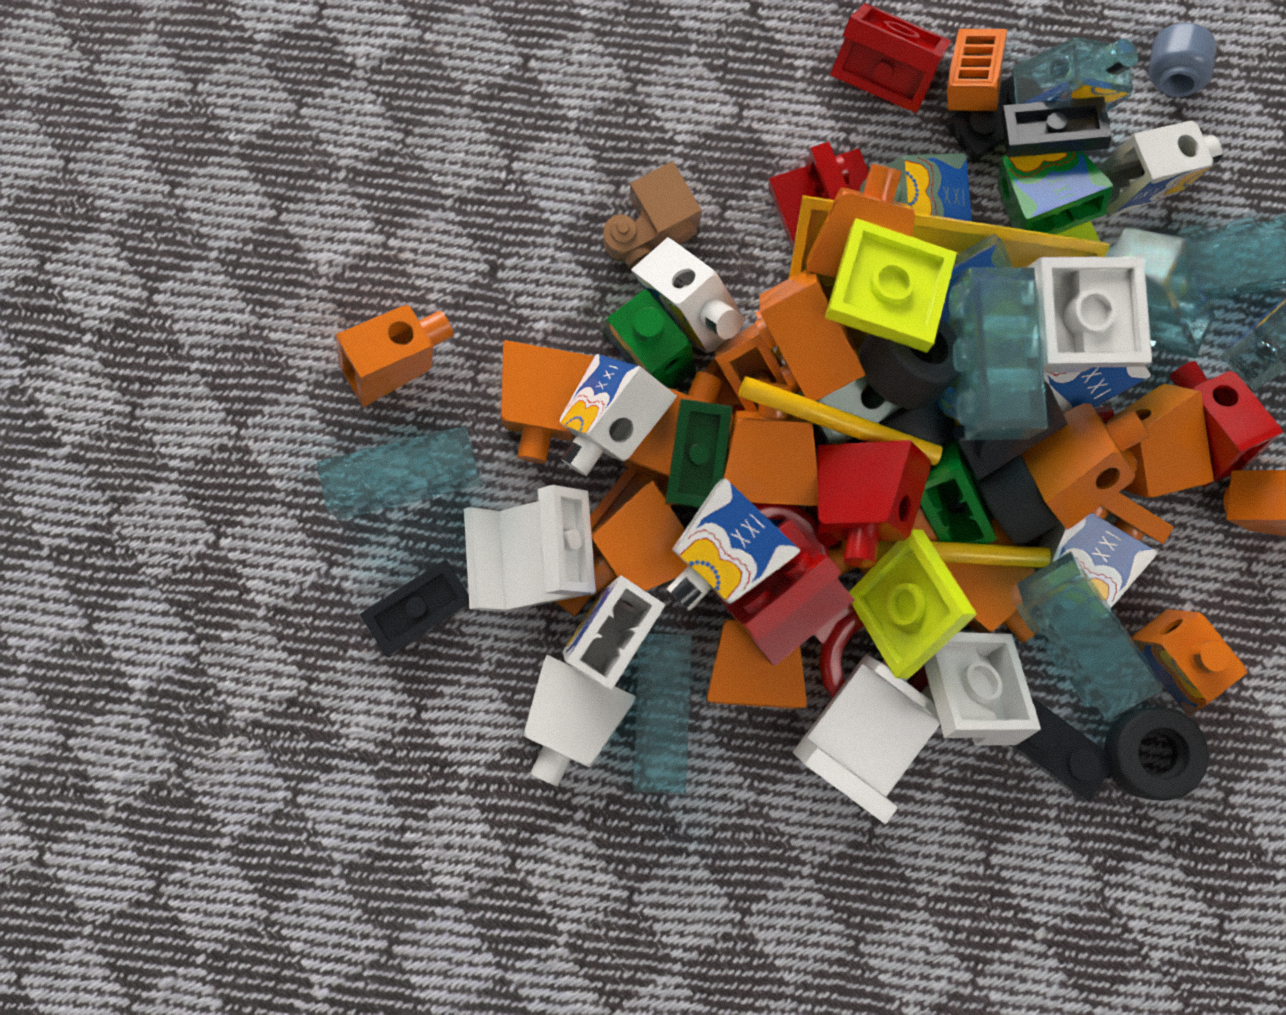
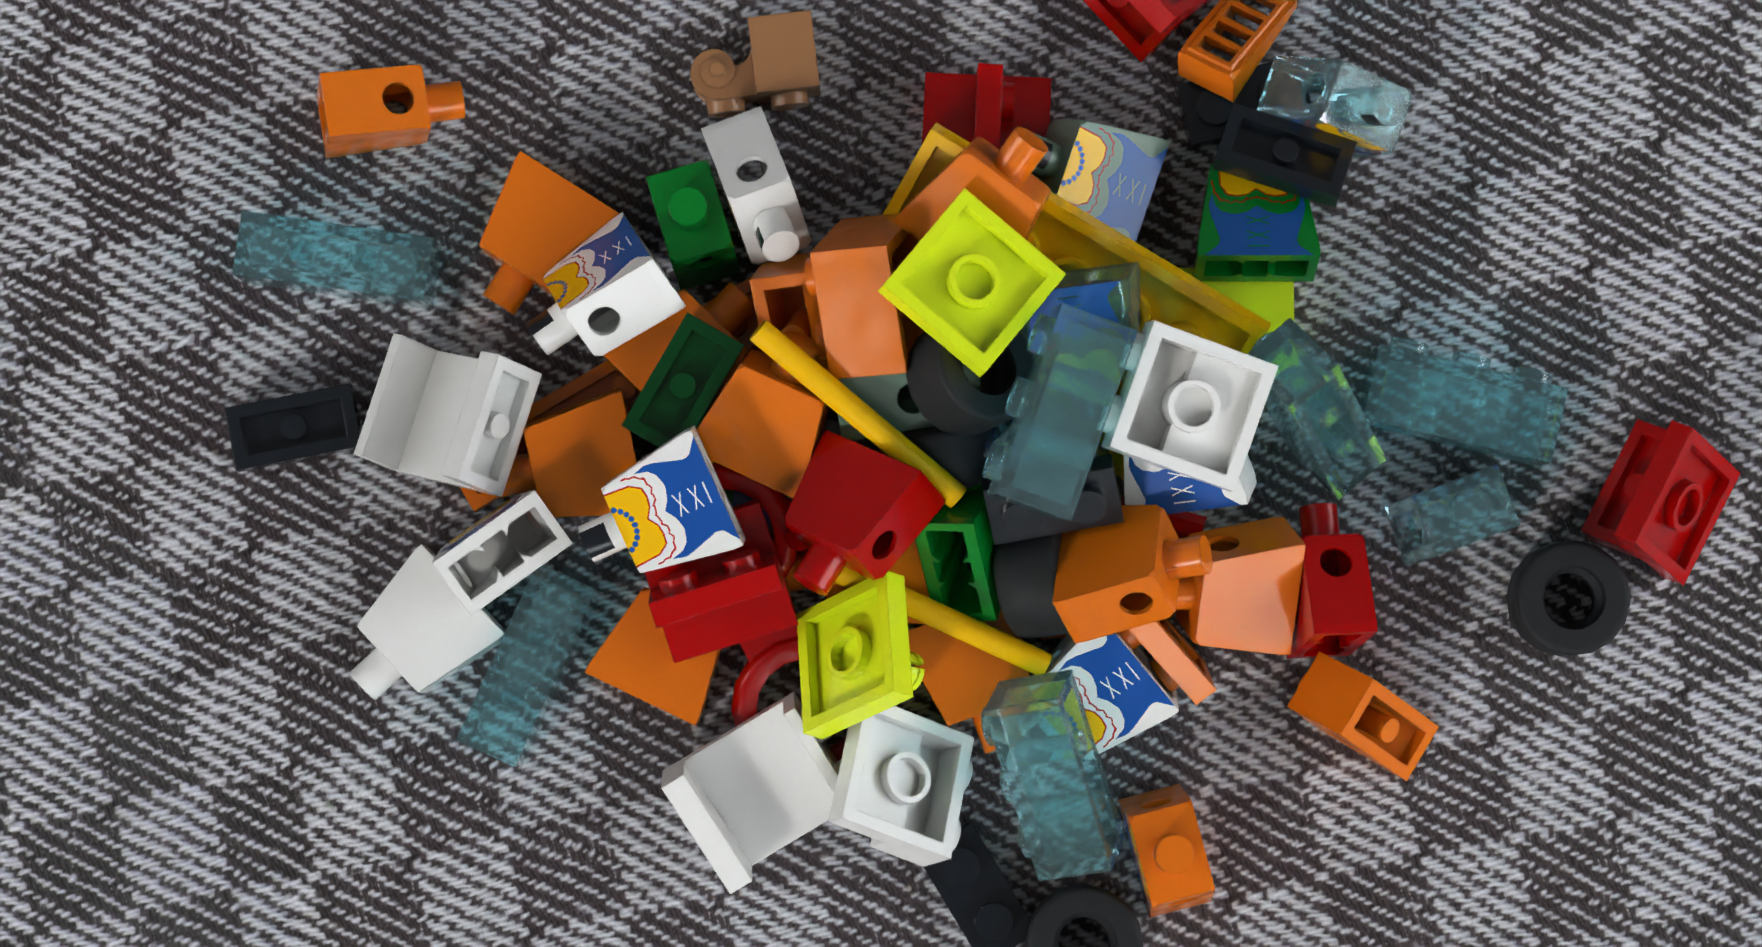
camera: 20 degrees right, 5 degrees up
(1171, 162) = (1399, 248): white torso -> none
(1182, 59) = (1494, 125): sand blue head -> none

